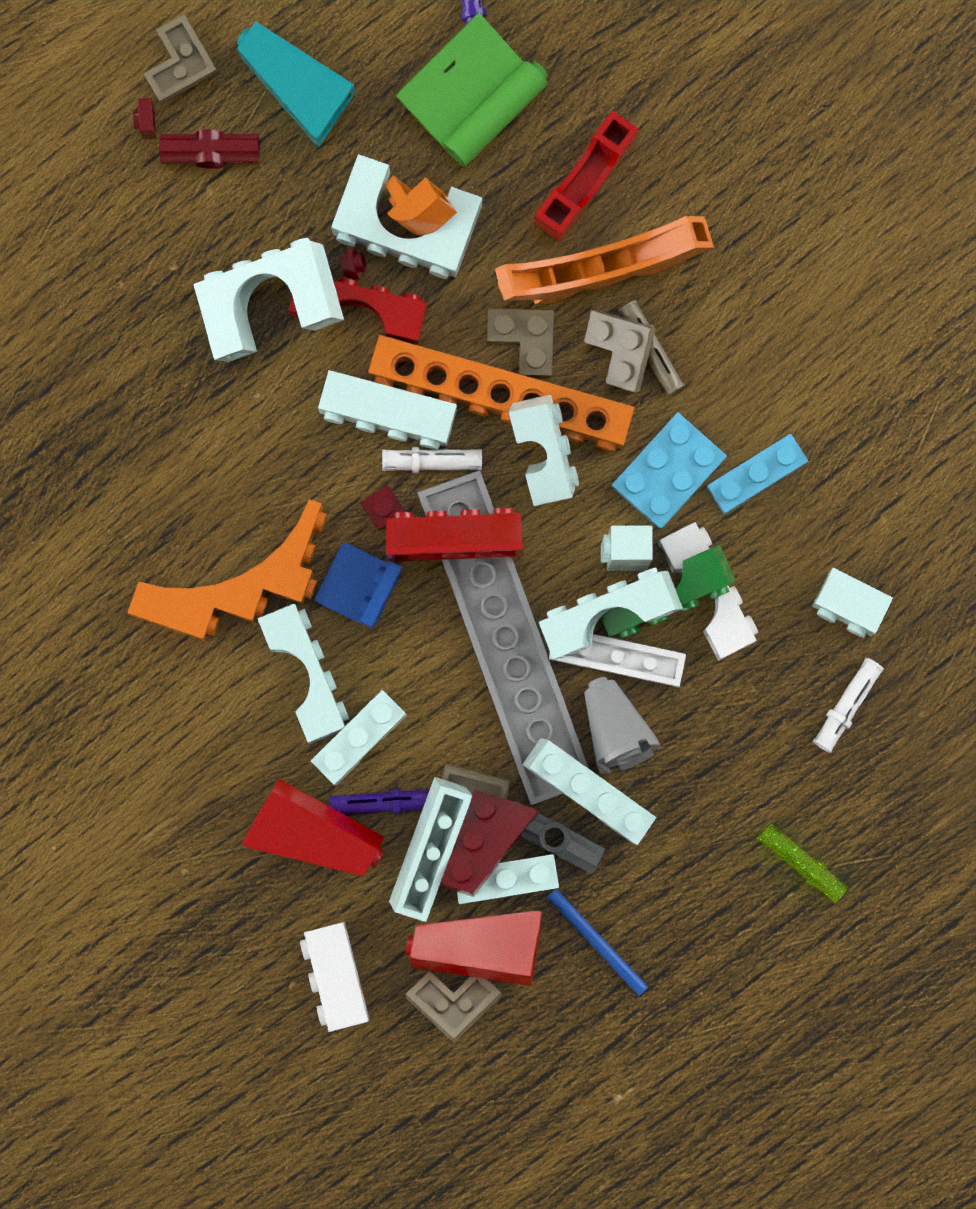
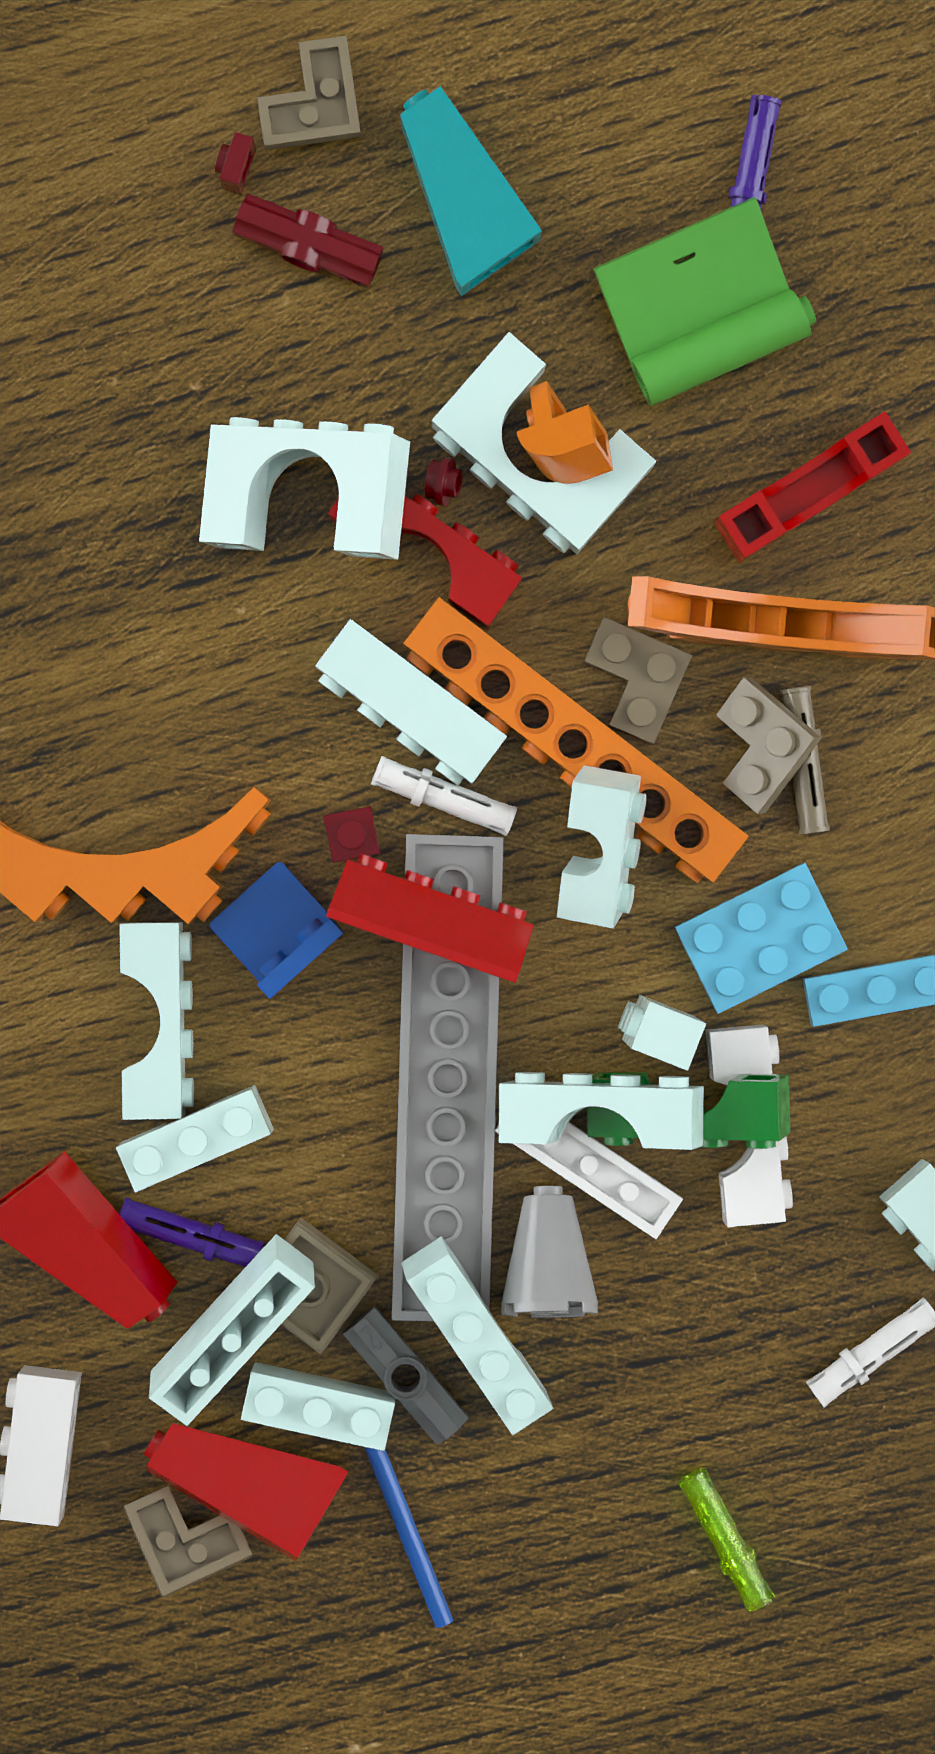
camera: 20 degrees right, 5 degrees up
(483, 840) = (308, 1349): dark red wing -> none

